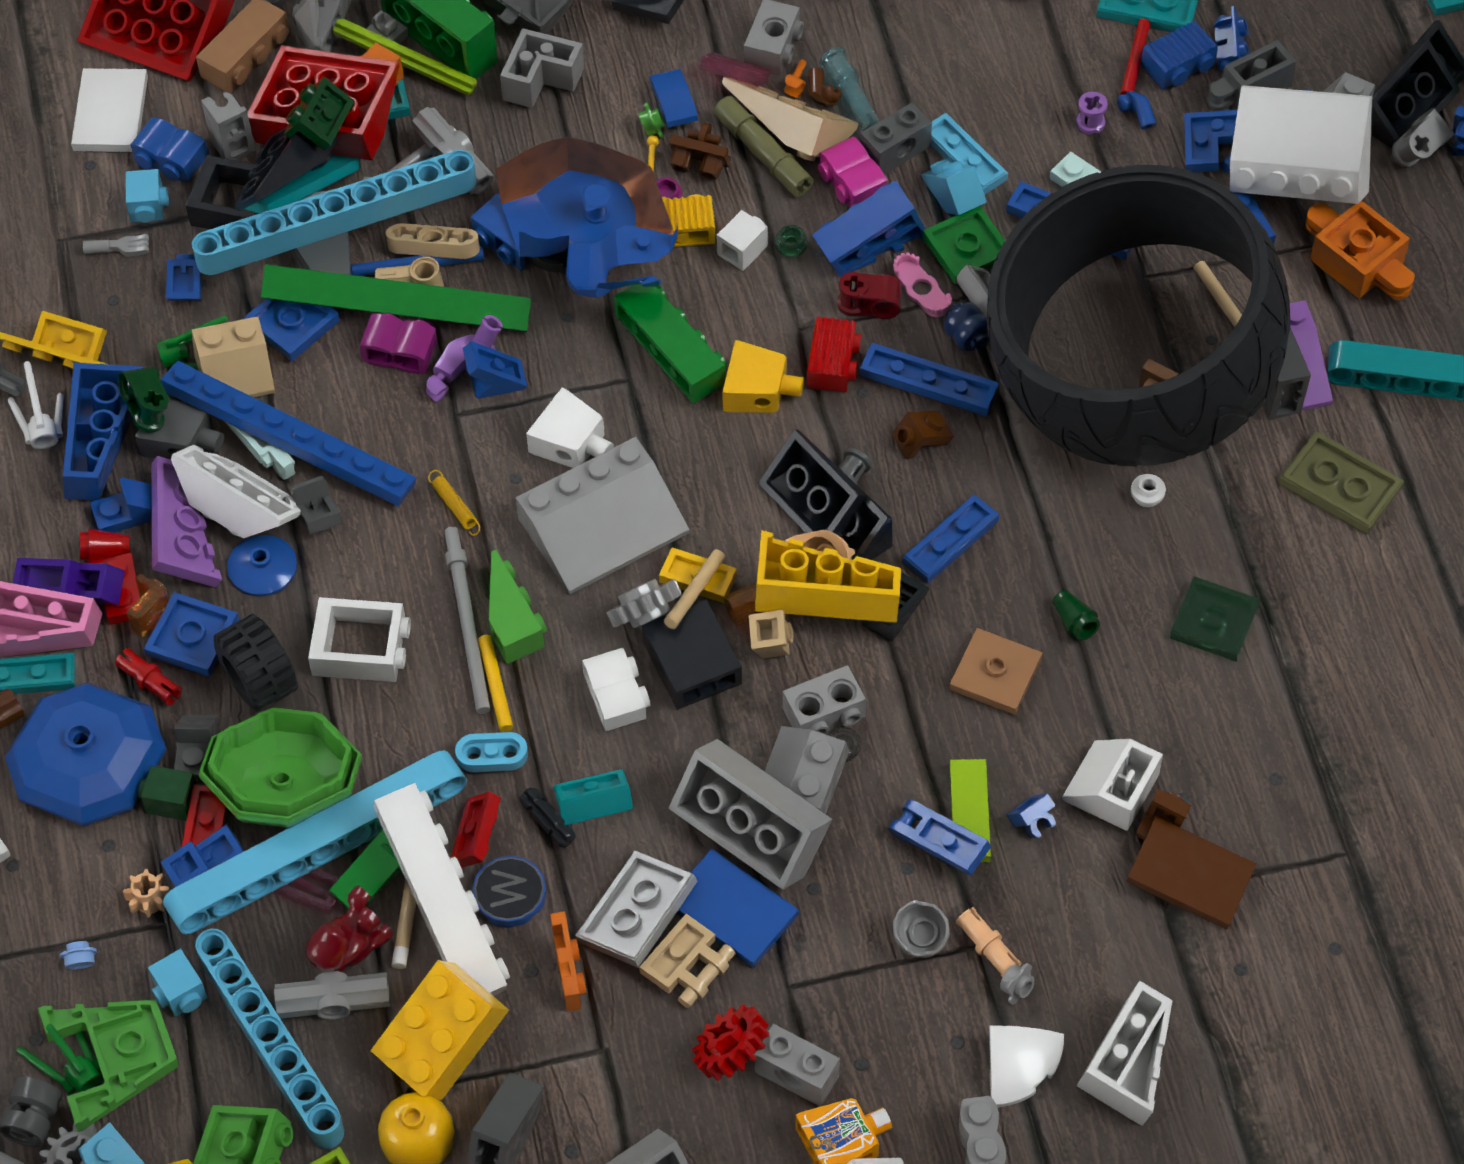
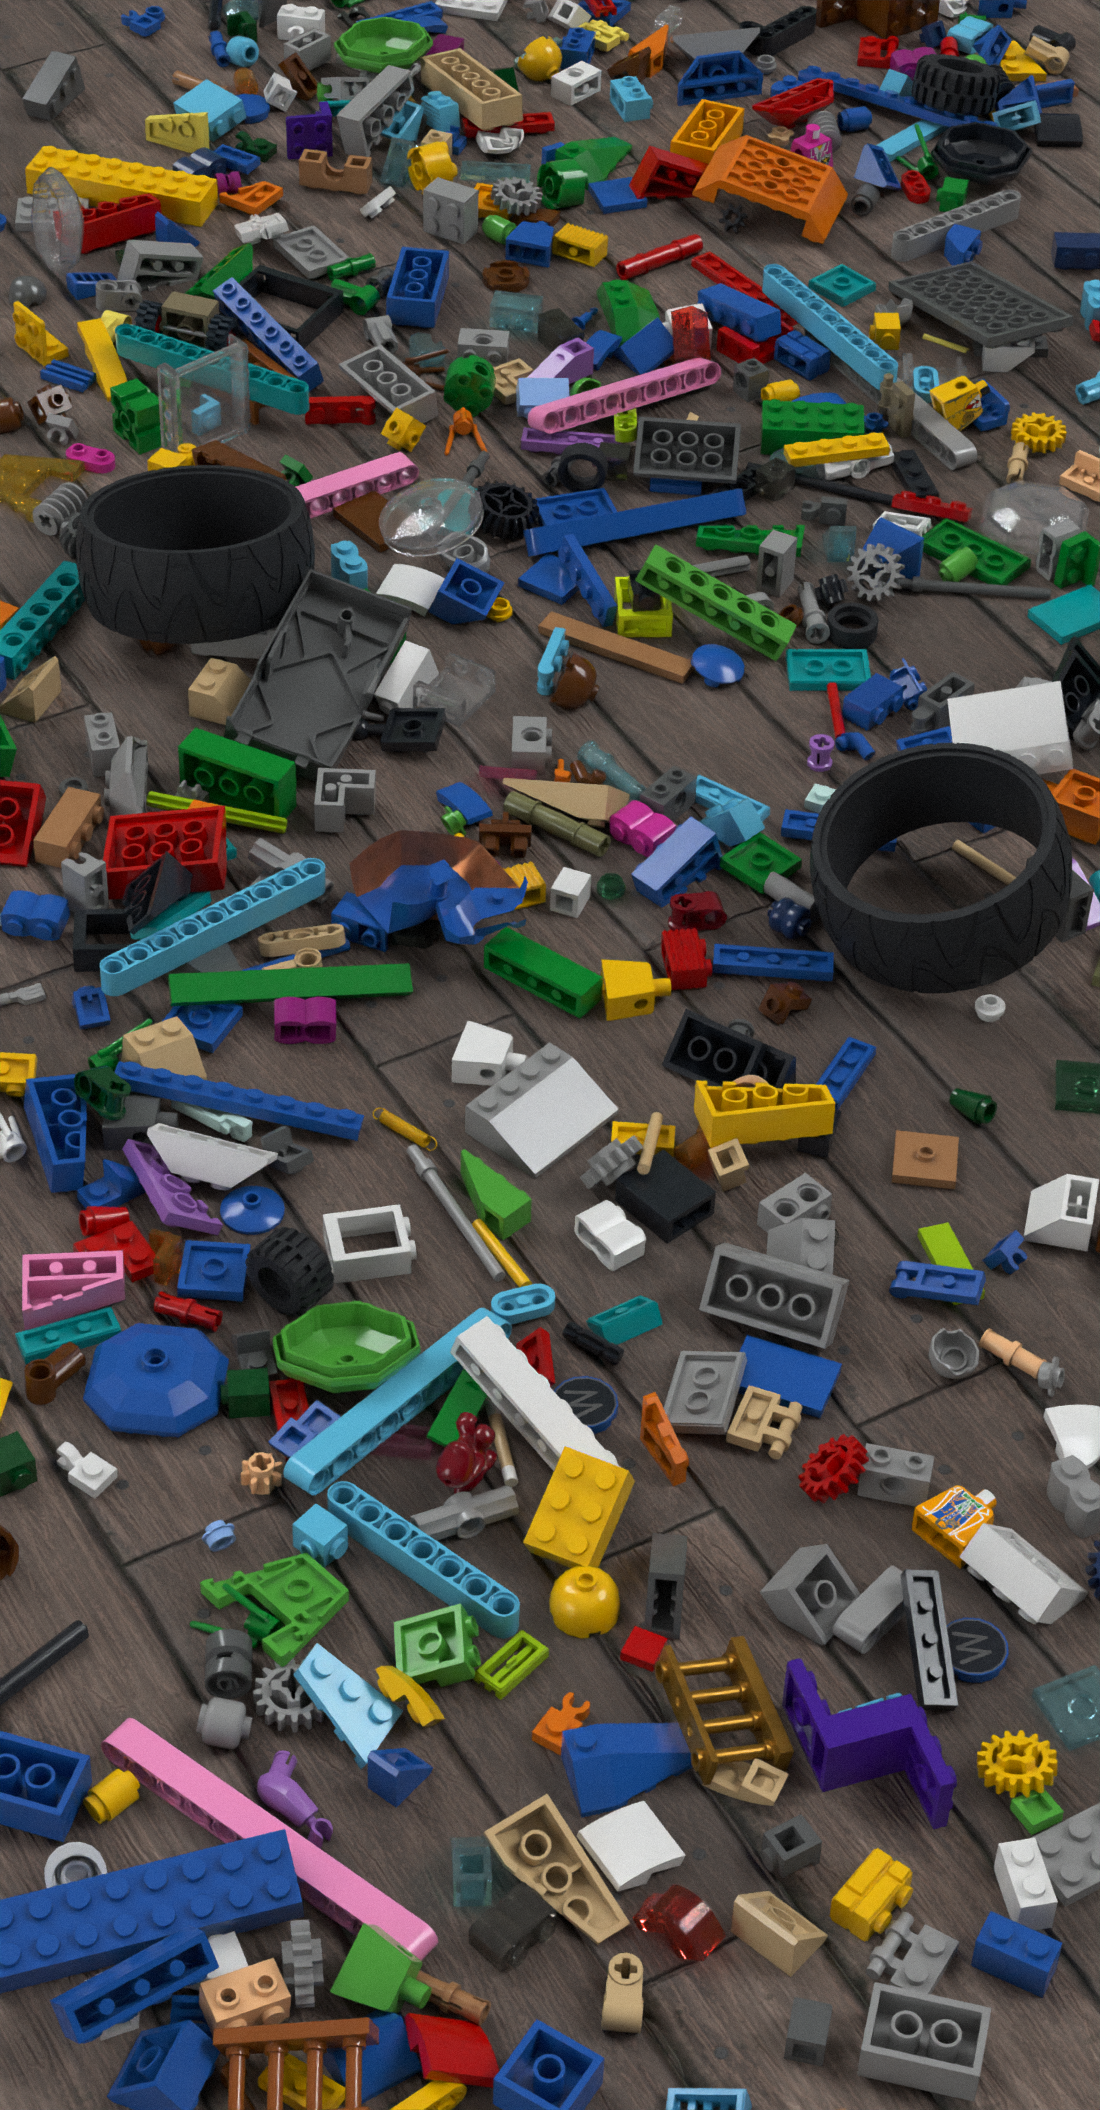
camera: 20 degrees left, 15 degrees down
(71, 577) = (89, 1238): dark purple slope -> none
(145, 196) = (28, 952): medium azure brick -> none
(319, 113) = (176, 848): dark green bracket -> none
(452, 360) = (368, 1017): medium lavender arm -> none
(493, 371) = (397, 1025): blue slope -> none
(910, 272) = (748, 910): bright pink piece -> none

